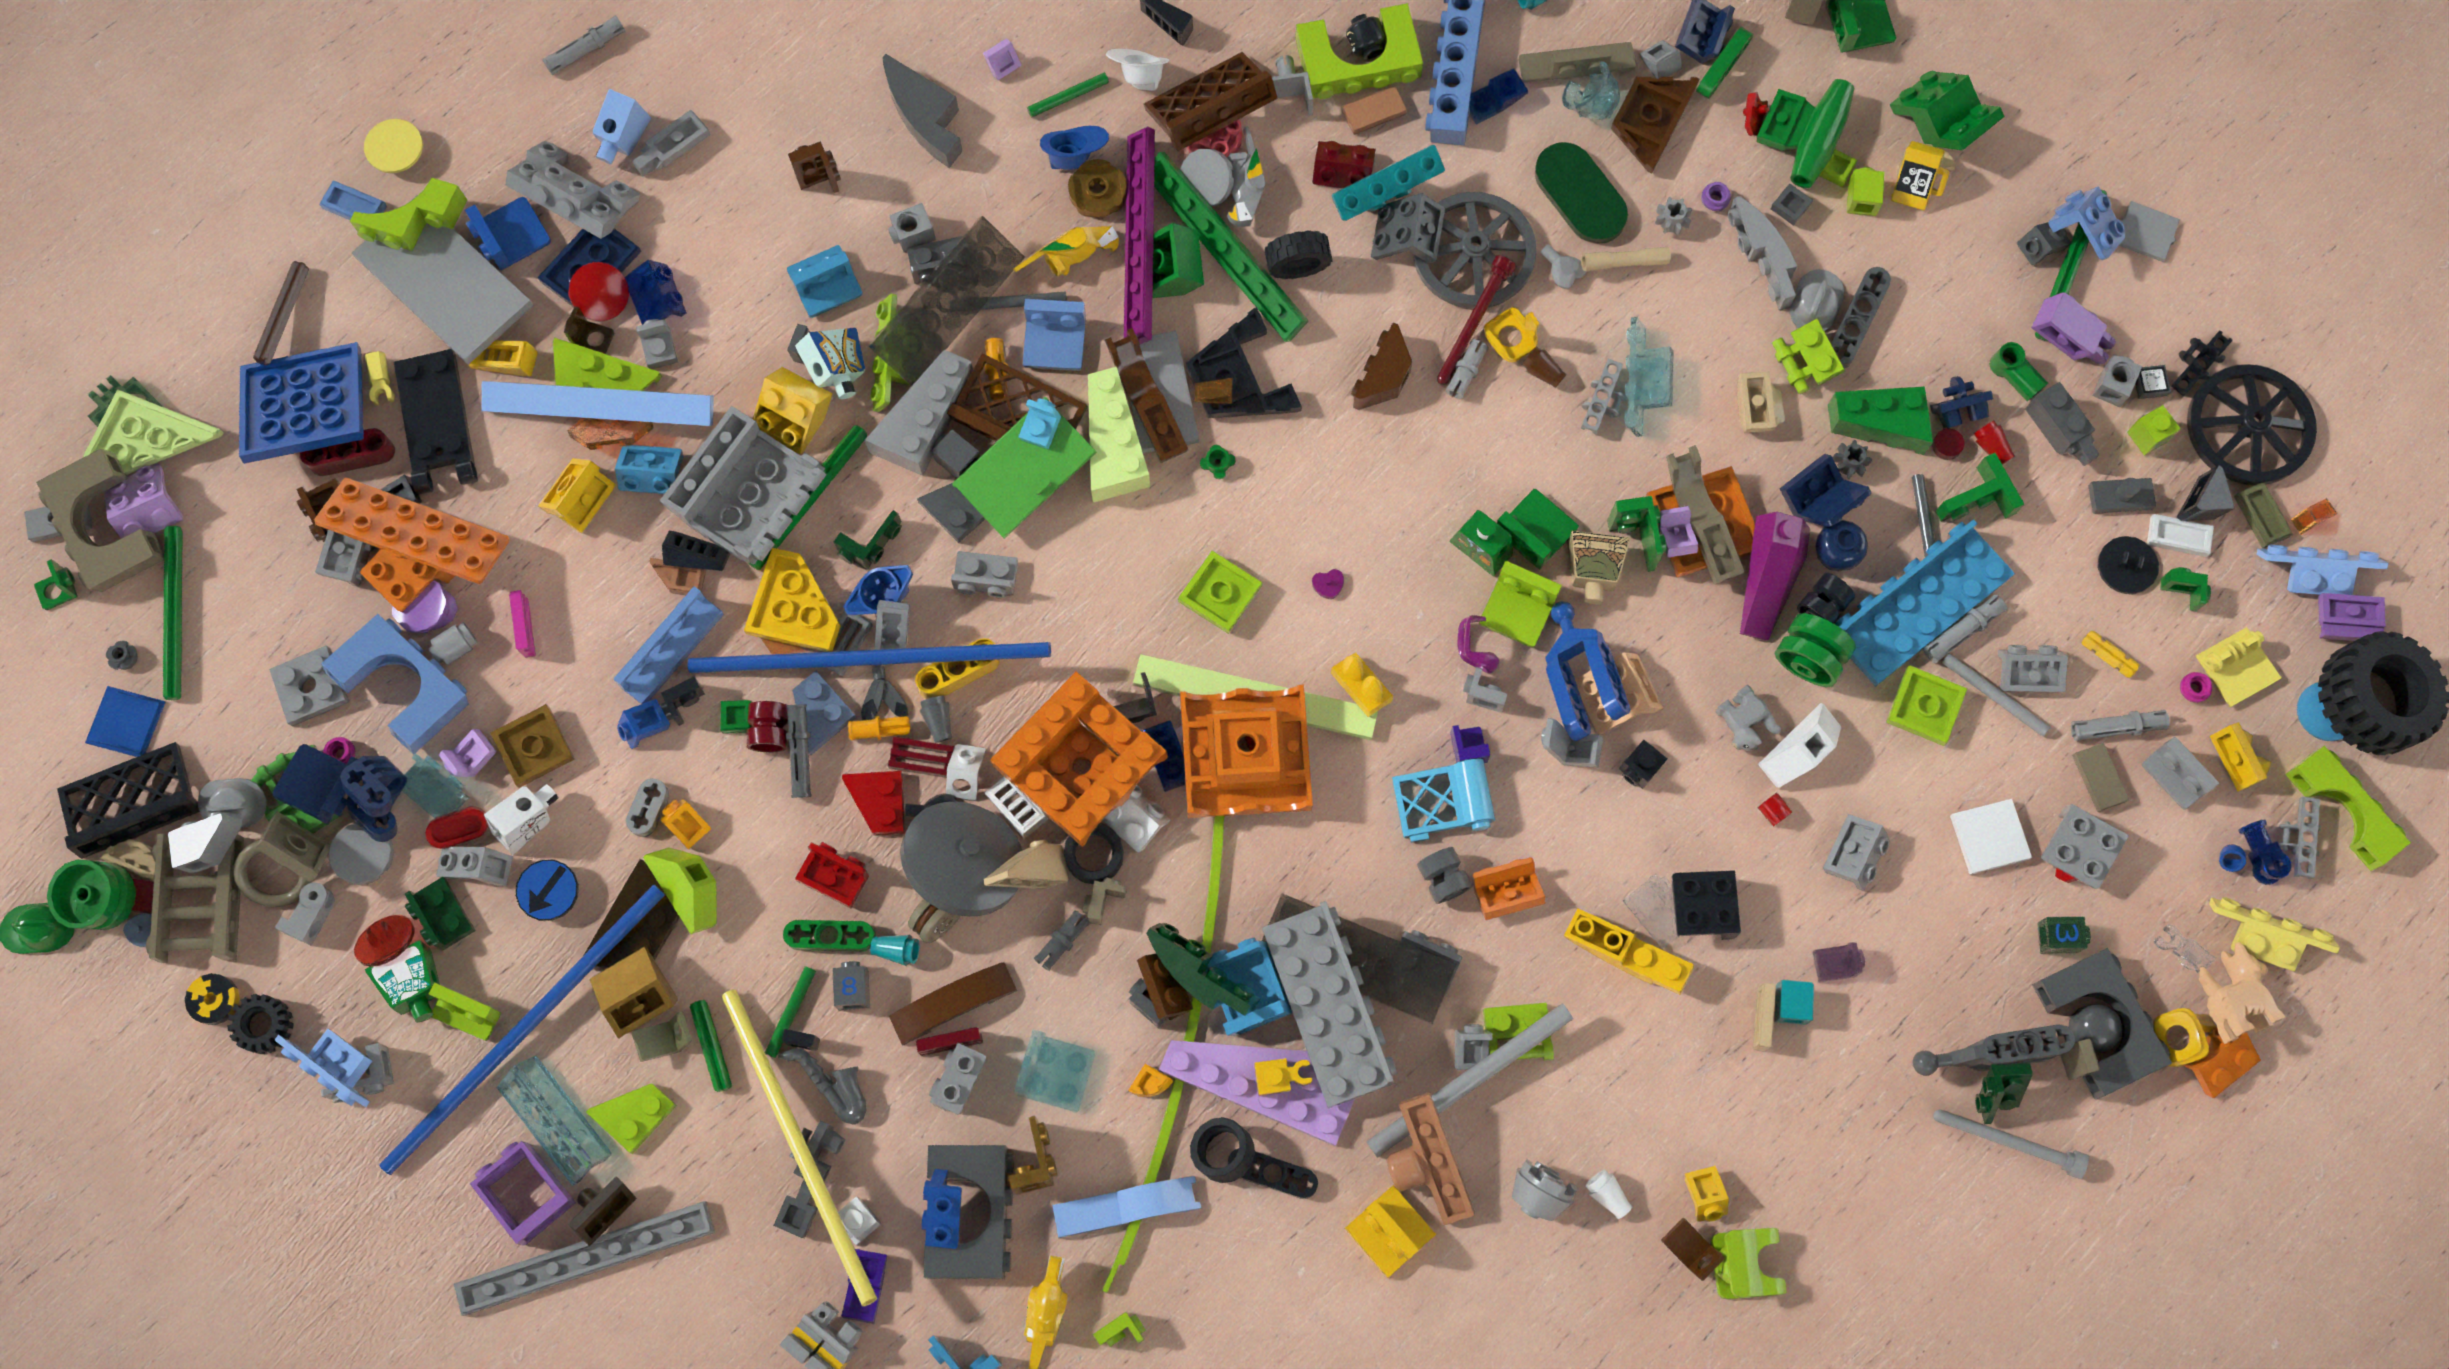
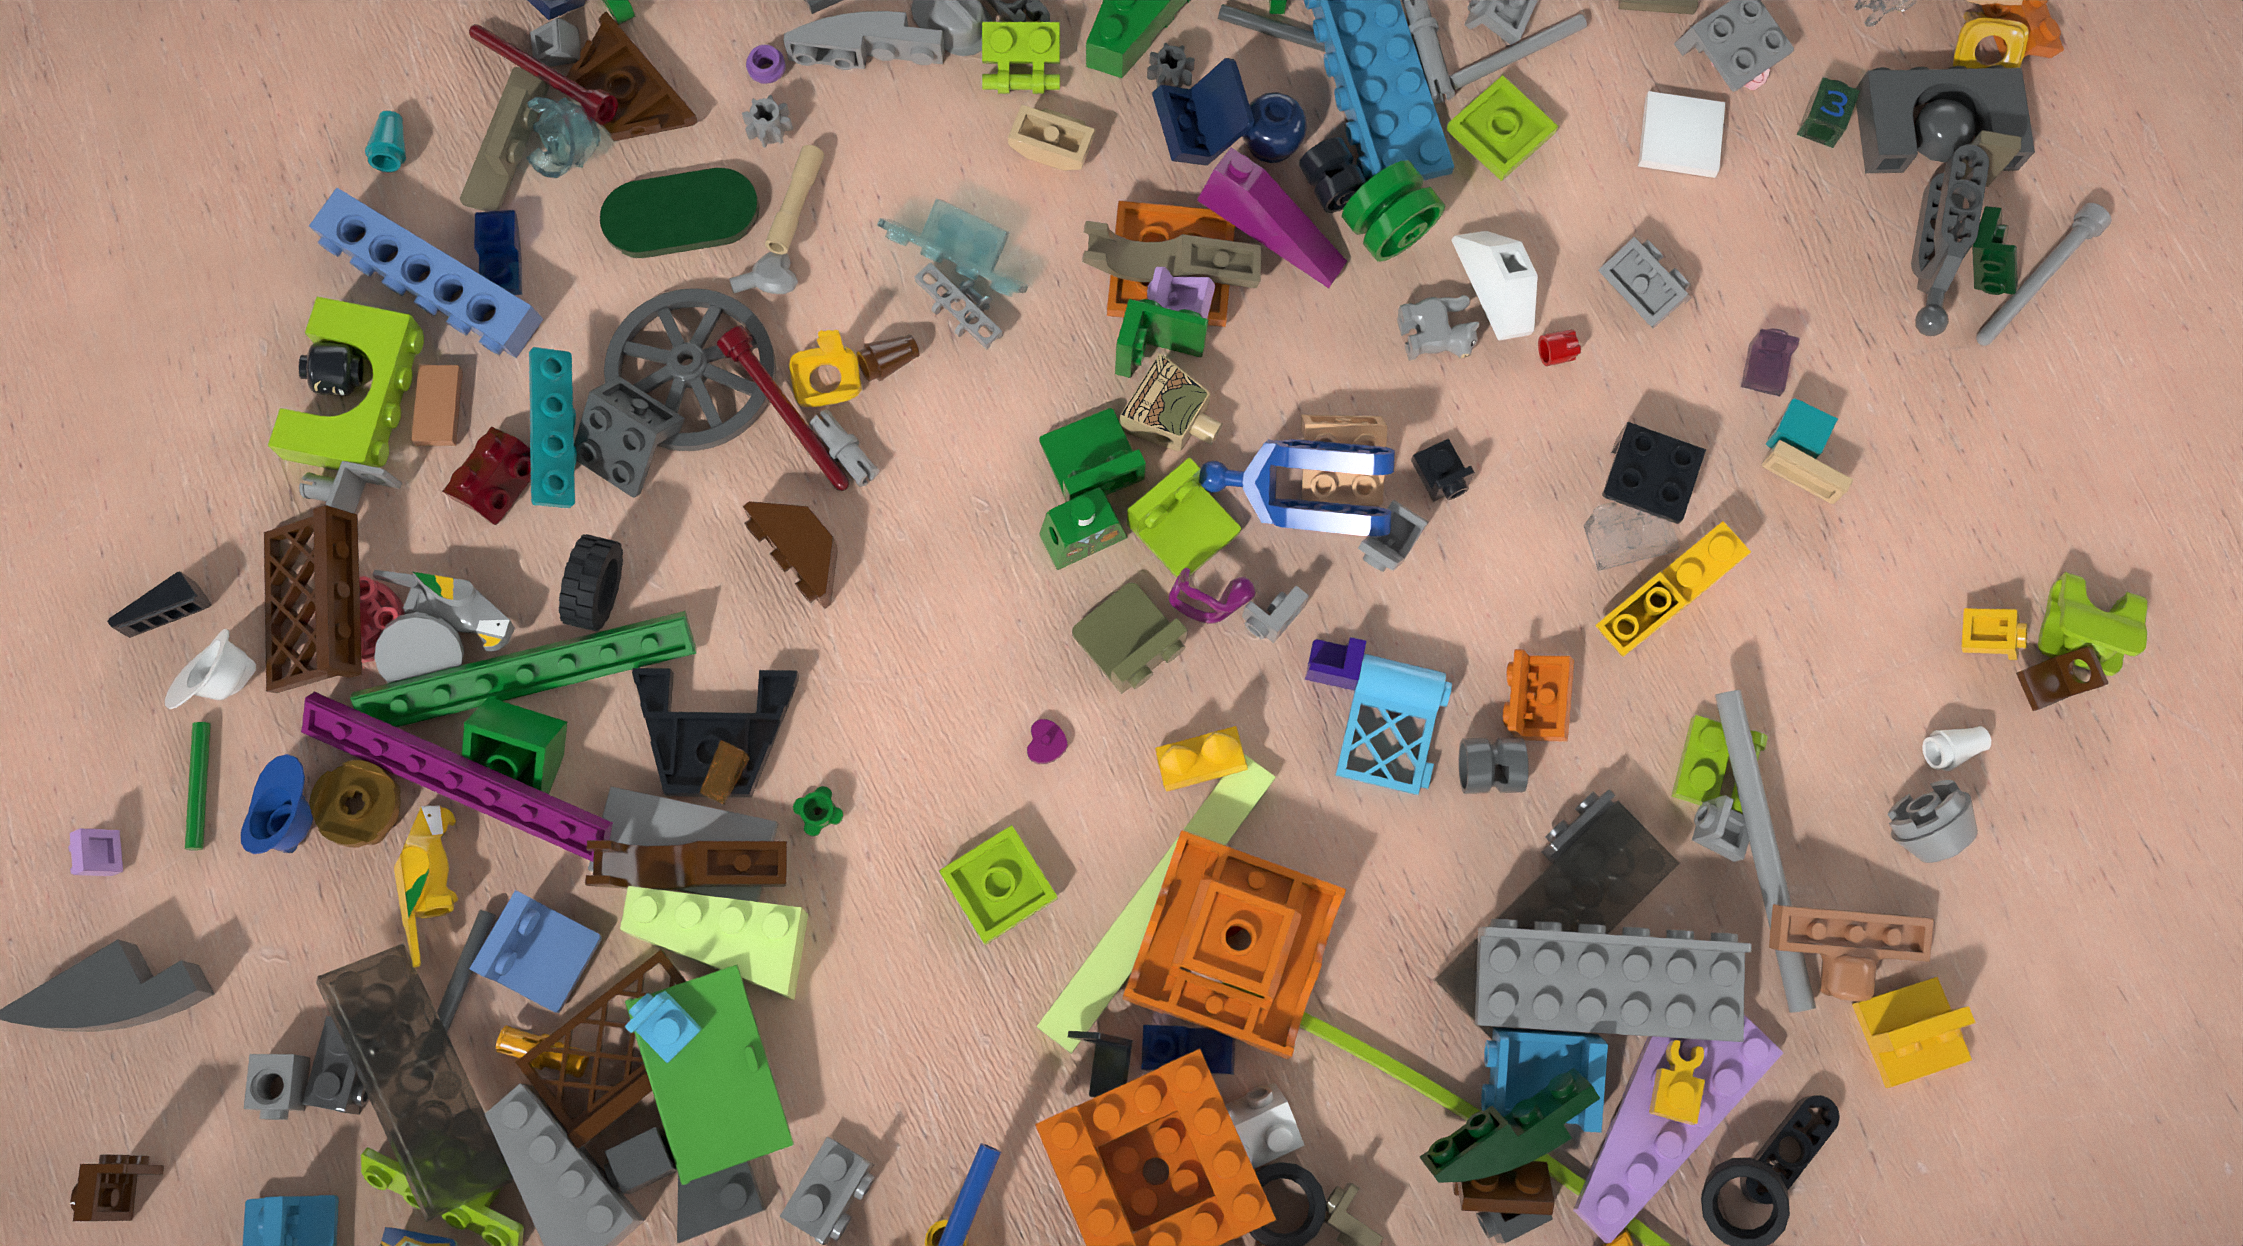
camera: 70 degrees left, 0 degrees up
(1422, 604) = (1129, 637): none -> olive bracket
(1626, 104) = (597, 103): none -> dark red piece

